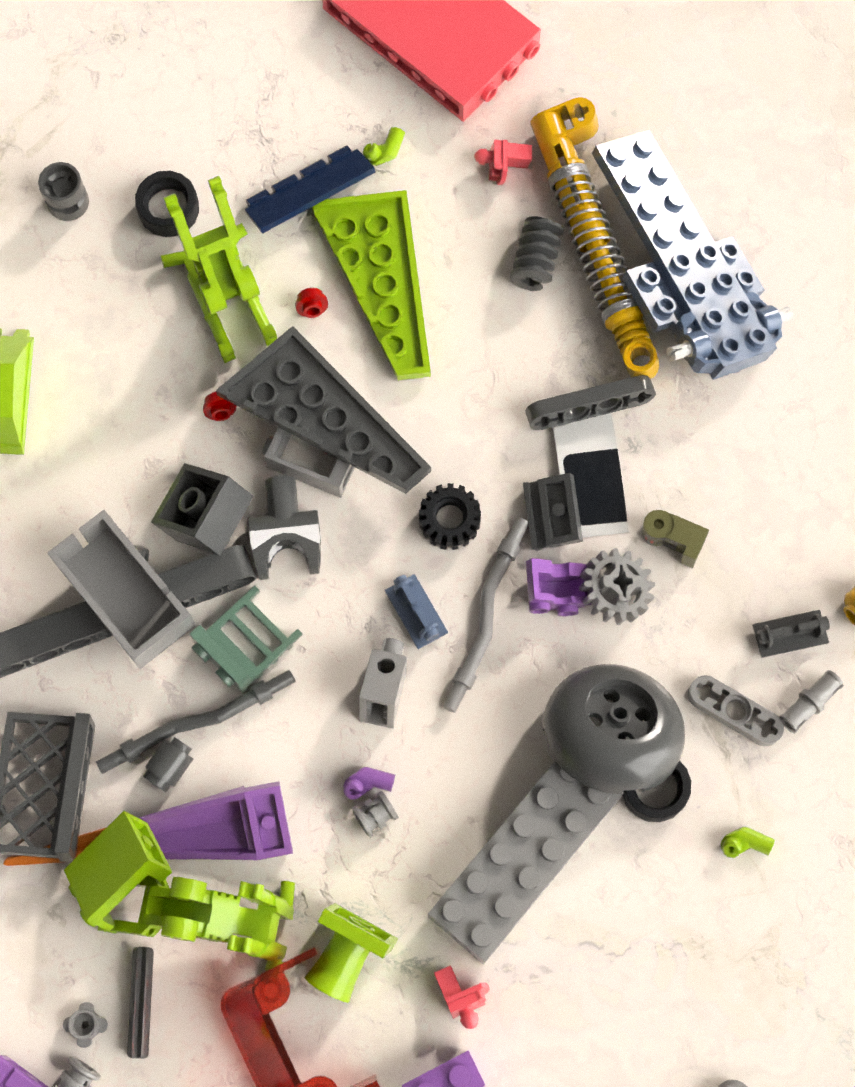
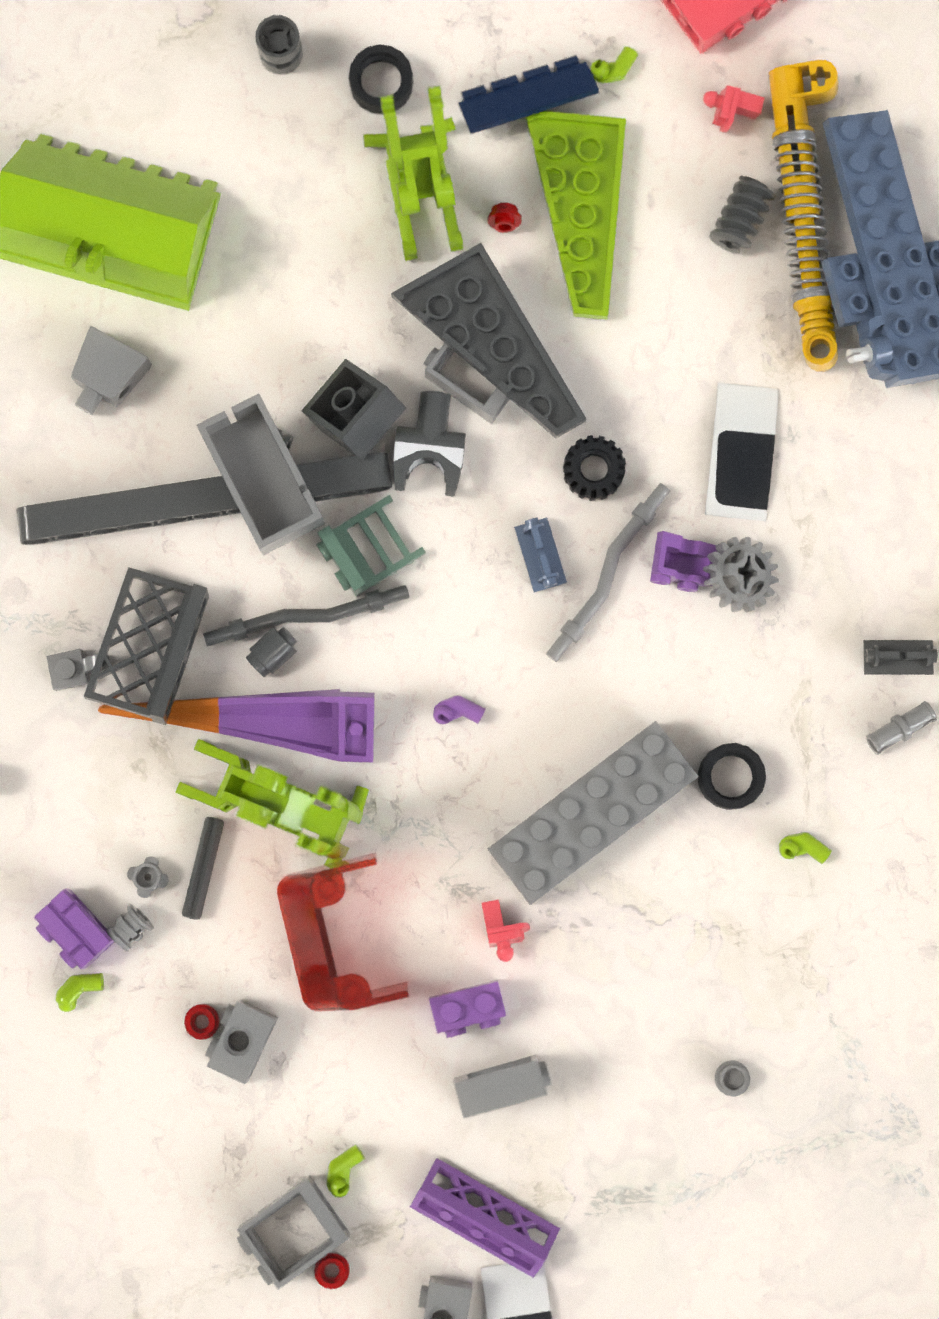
camera: 10 degrees right, 10 degrees up
(114, 867) = (203, 740): lime panel -> none
(217, 407) = (388, 307): red plate -> none
(346, 952) = (404, 866): lime plant -> none
(374, 813) = (458, 742): light grey bush -> none
(383, 684) = (491, 628): light grey torso -> none
(552, 512) = (696, 486): dark grey plate -> none
(590, 402) = (759, 383): dark grey beam -> none
(601, 753) = (682, 735): dark grey brick -> none
(675, 533) = (812, 534): olive leg -> none
(754, 730) = (839, 744): light grey beam -> none

